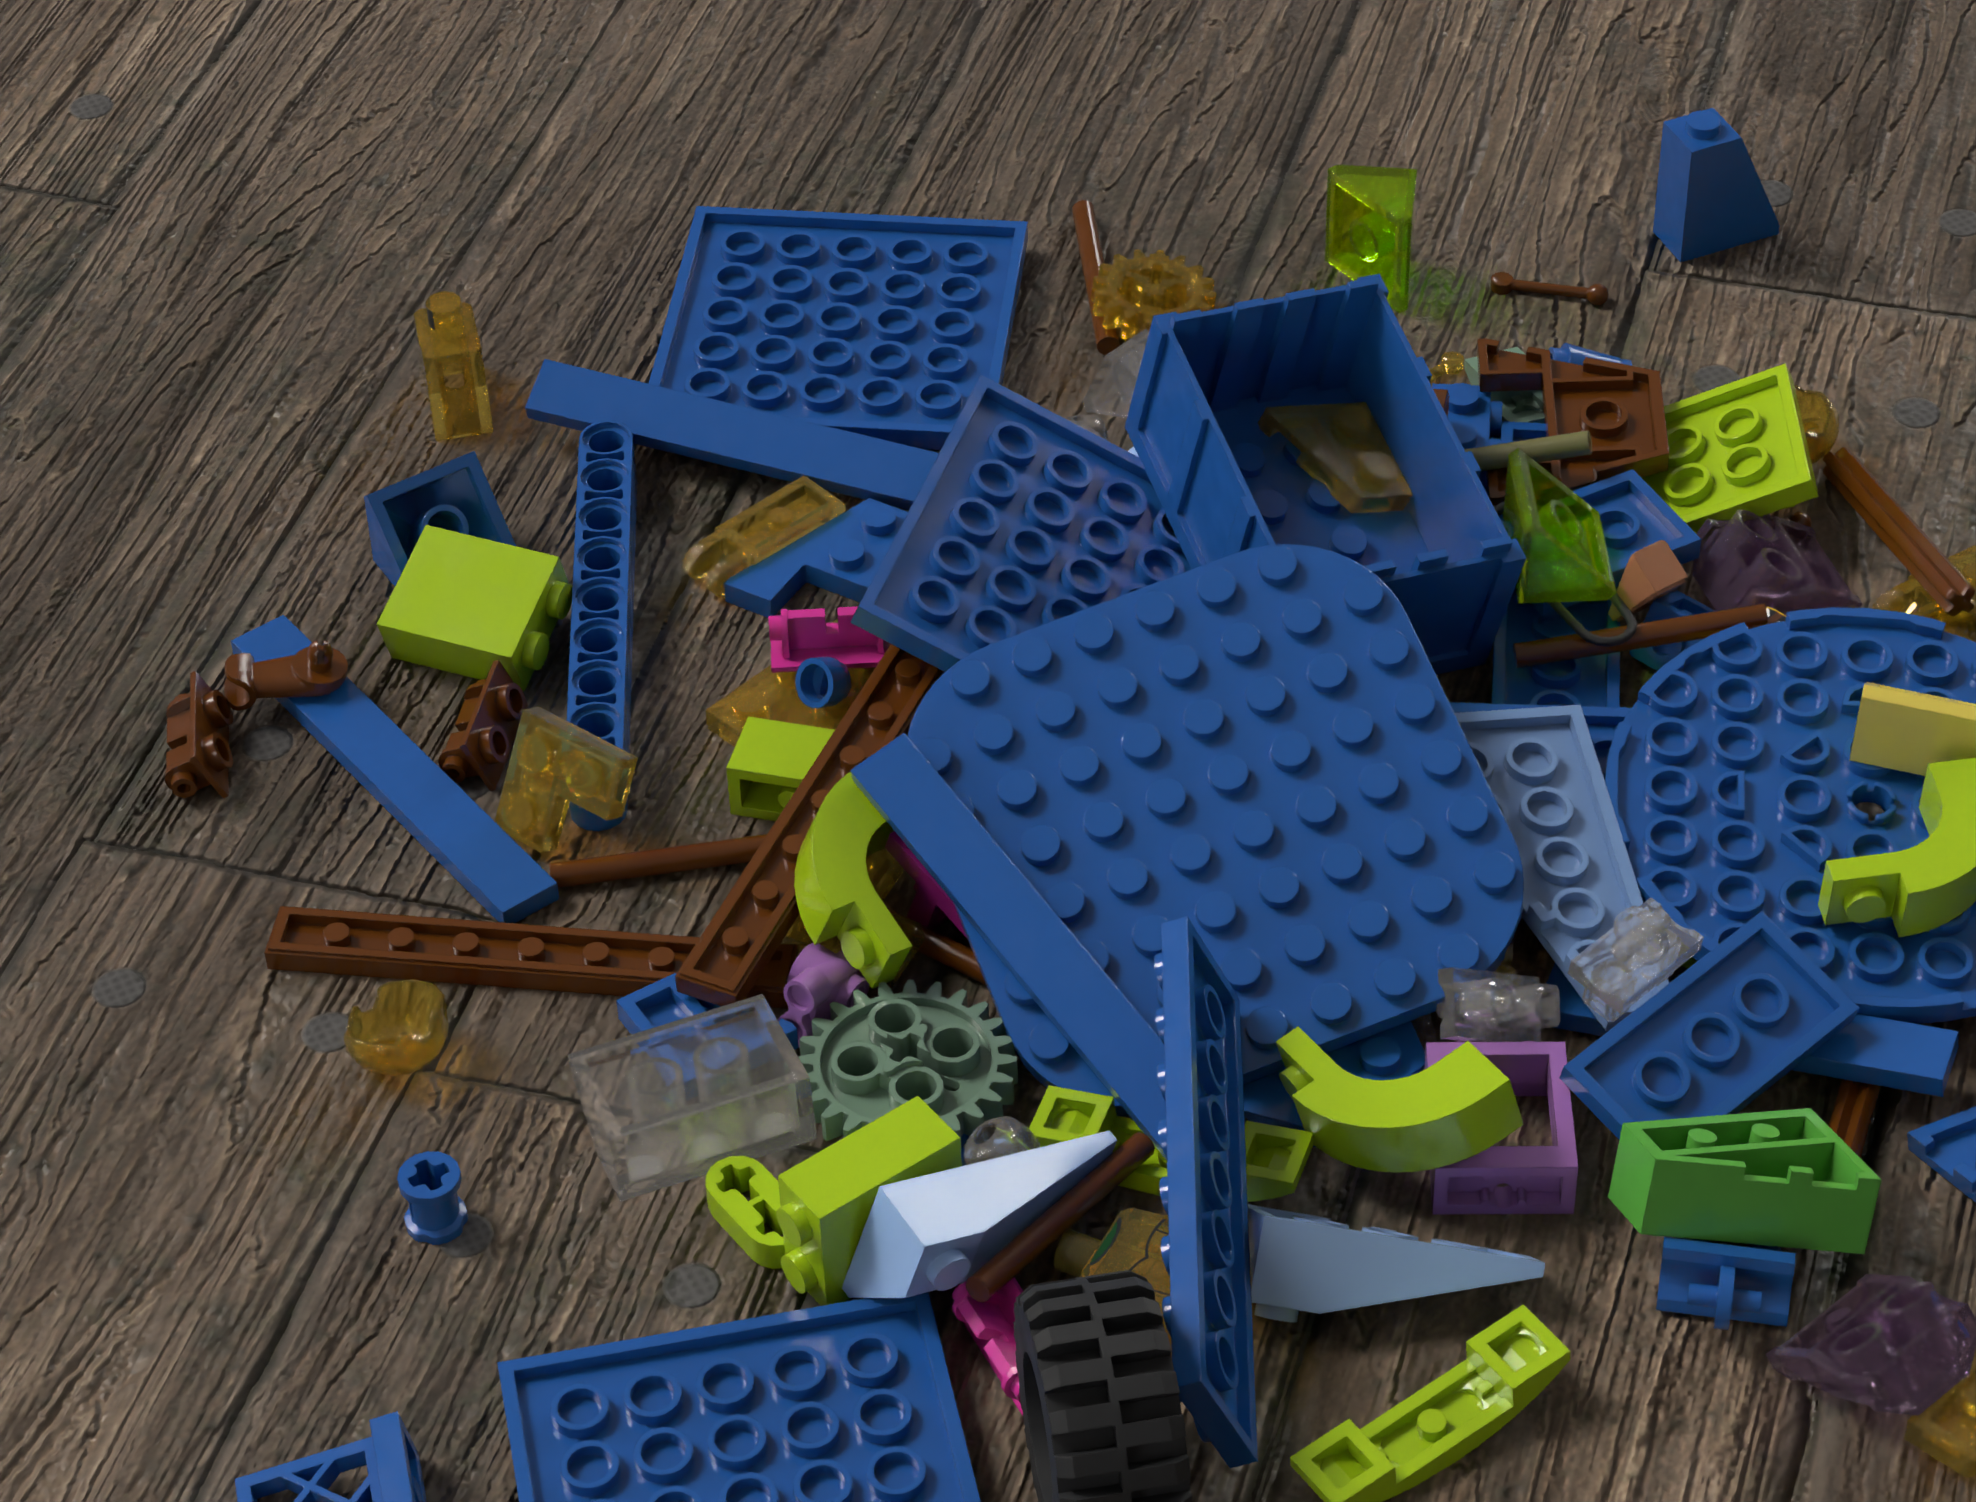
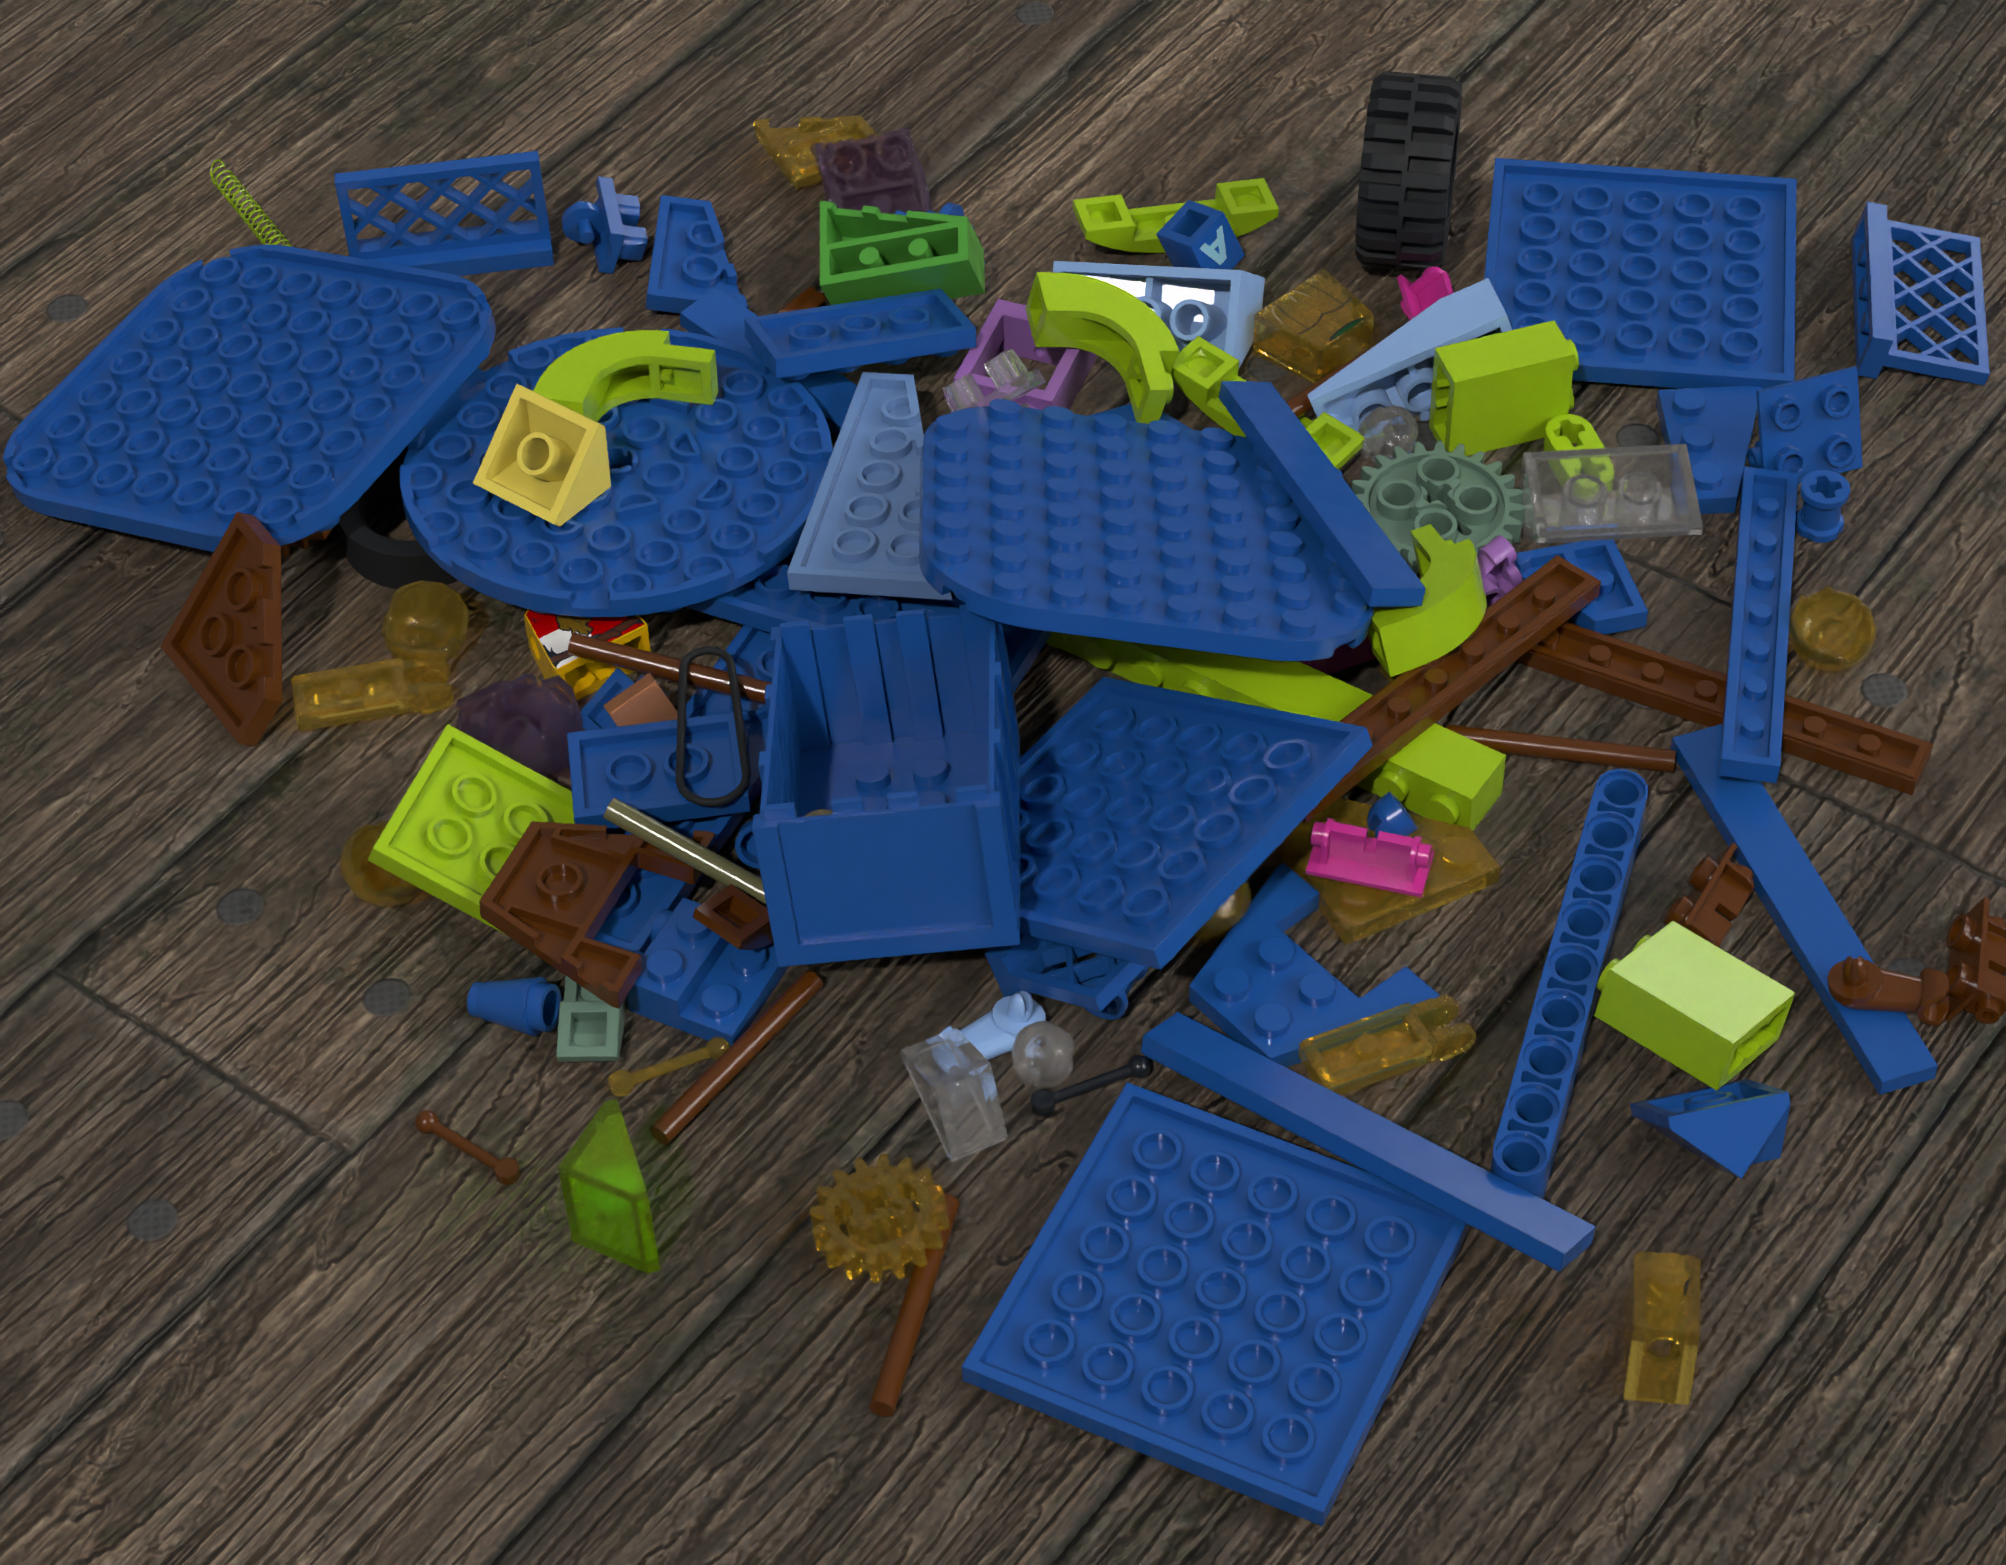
camera: 160 degrees left, 5 degrees up
(482, 1257) = (1809, 425): none -> blue hinge
(483, 1025) = (1759, 626): none -> blue plate
(557, 766) = (1664, 774): clear yellow plate -> none
(595, 1271) = (1717, 433): none -> blue wing
(1206, 1194) = (1274, 291): blue plate -> none
(1362, 1342) = (1200, 238): none -> blue brick
(1558, 536) = (713, 714): clear neon green slope -> none
(1632, 958) = (884, 356): clear hips -> none
(1708, 189) = (249, 1144): blue slope -> none
(1899, 532) = (385, 721): reddish brown axle -> none

